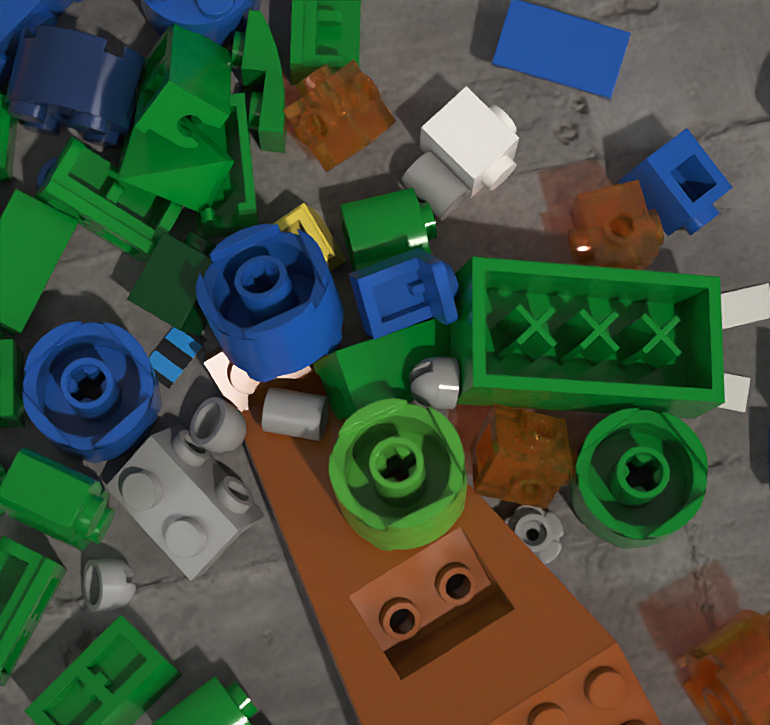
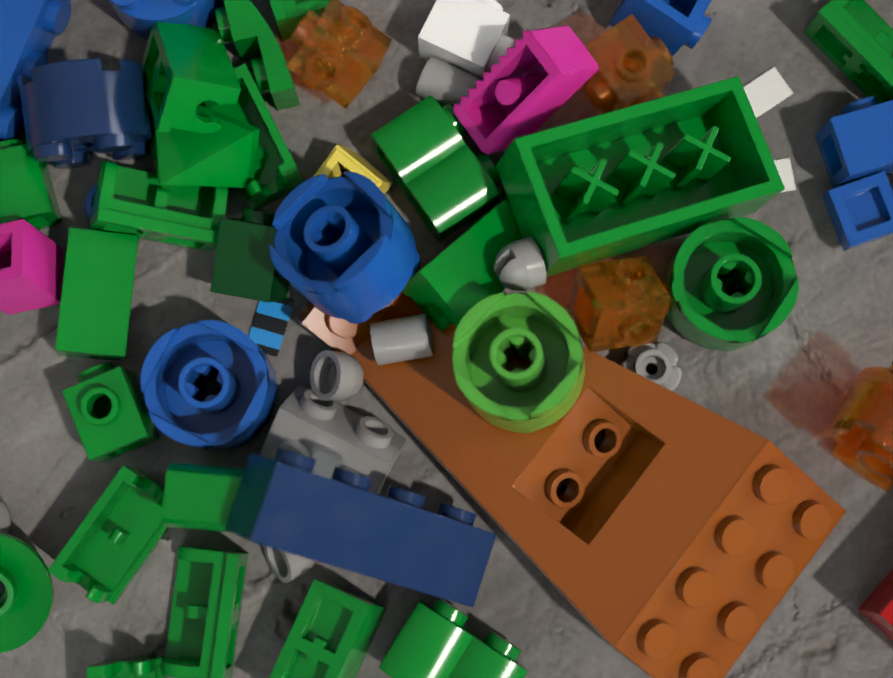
camera: 15 degrees left, 5 degrees up
(184, 580) = (358, 530): none -> dark blue brick
(404, 292) = (462, 193): blue bracket -> none
(507, 212) = (525, 87): none -> dark pink brick

